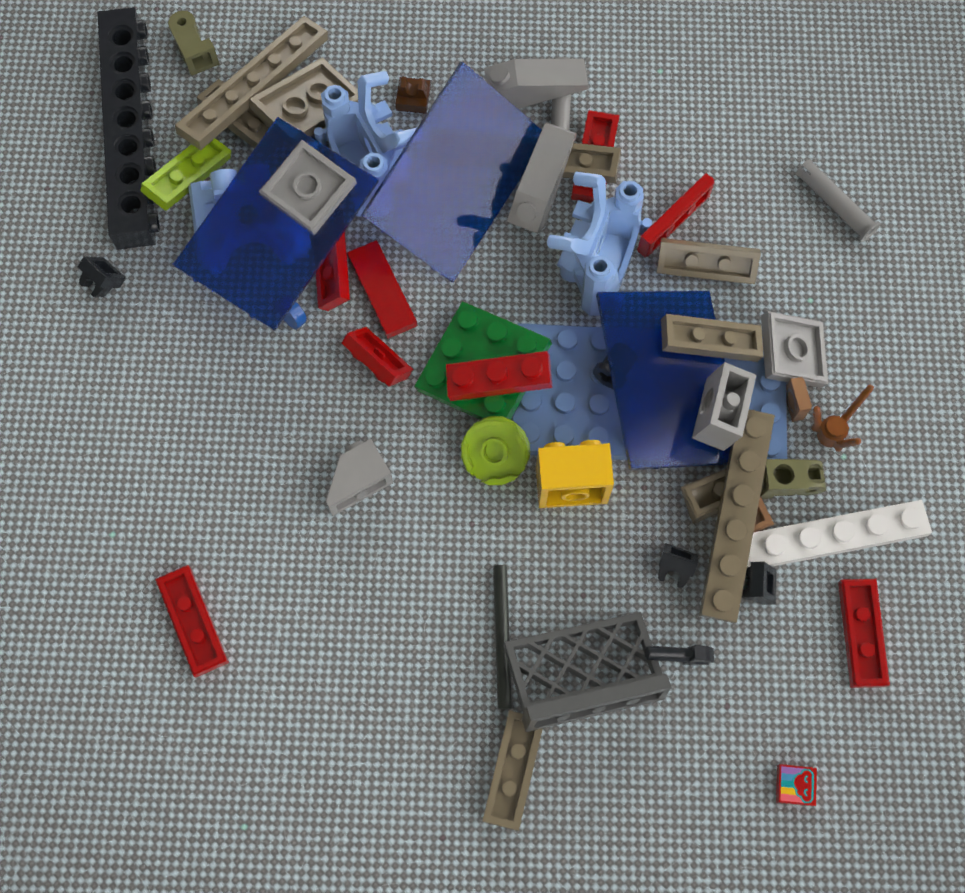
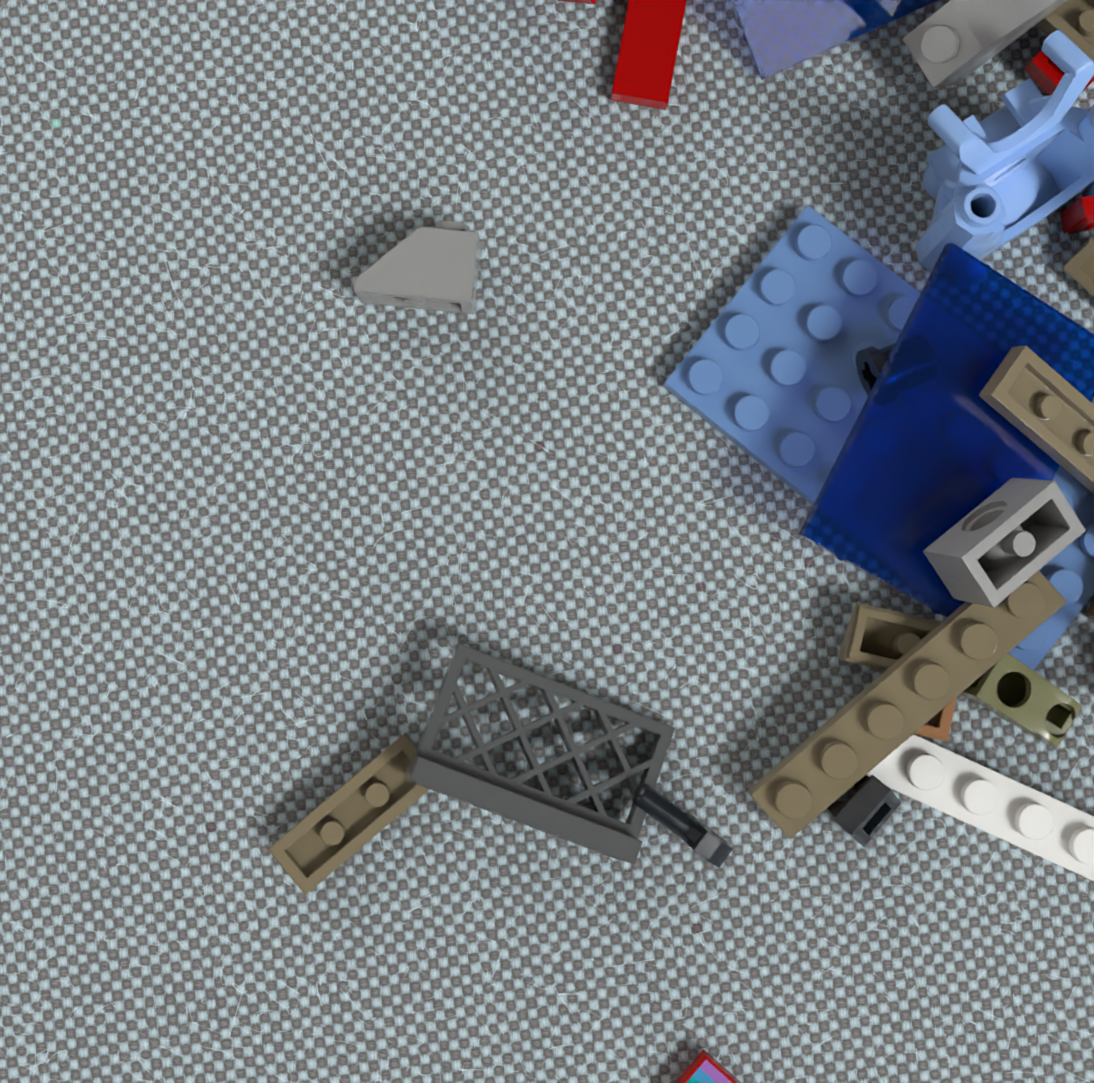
camera: 40 degrees right, 15 degrees up
(192, 621) = (80, 316): red tile -> none
(377, 356) = (575, 115): red plate -> none
(472, 337) = (714, 233): green plate -> none
(495, 450) = (640, 369): lime tile -> none
(499, 376) = (719, 267): red plate -> none
(501, 611) = (469, 626): pearl dark grey bar -> none
(574, 474) = (722, 481): yellow brick -> none
(677, 560) = (776, 700): black tile -> none
(863, 633) = (952, 969): red tile -> none

